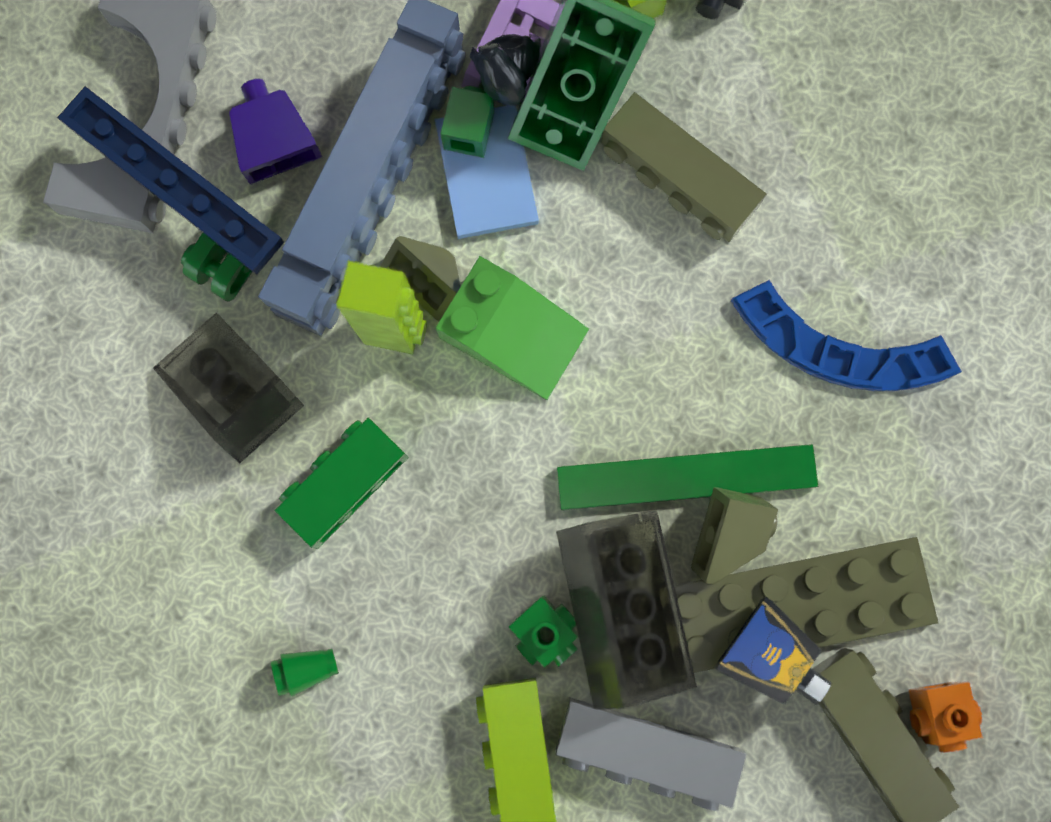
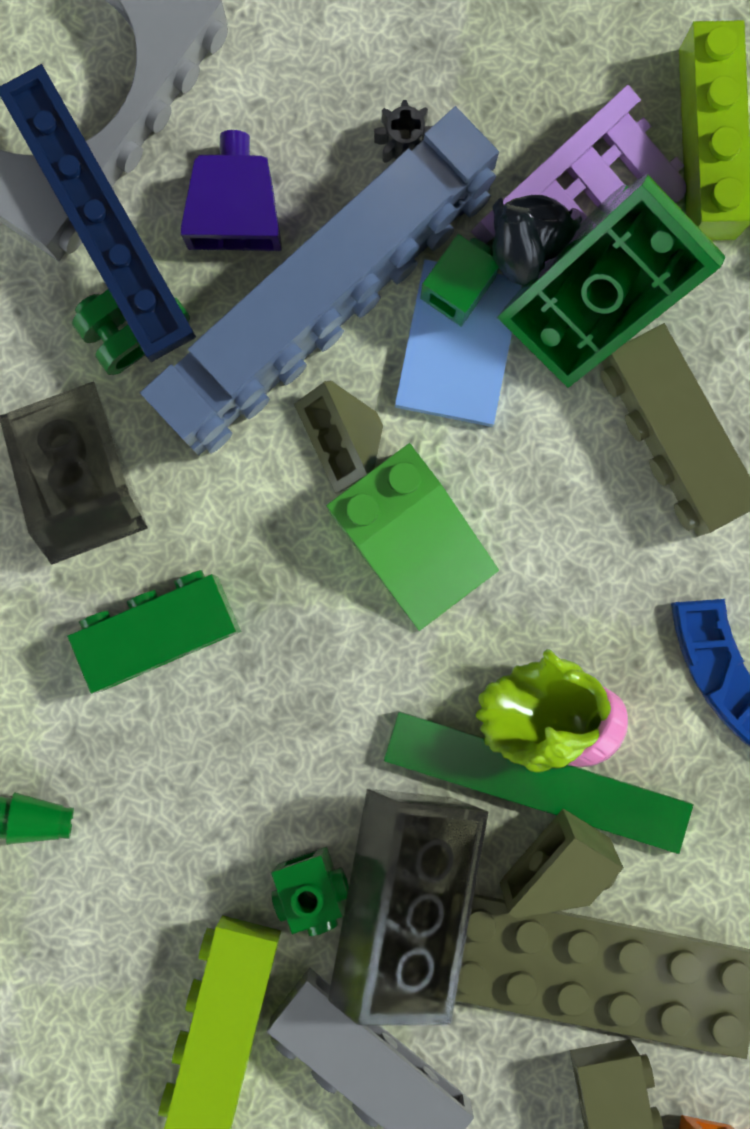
camera: 20 degrees right, 5 degrees up
(376, 21) = (400, 119): none -> black gear
(381, 307) = (271, 463): lime brick -> none
(675, 418) = (552, 716): none -> lime hair
(774, 656) = (547, 1028): torso -> none

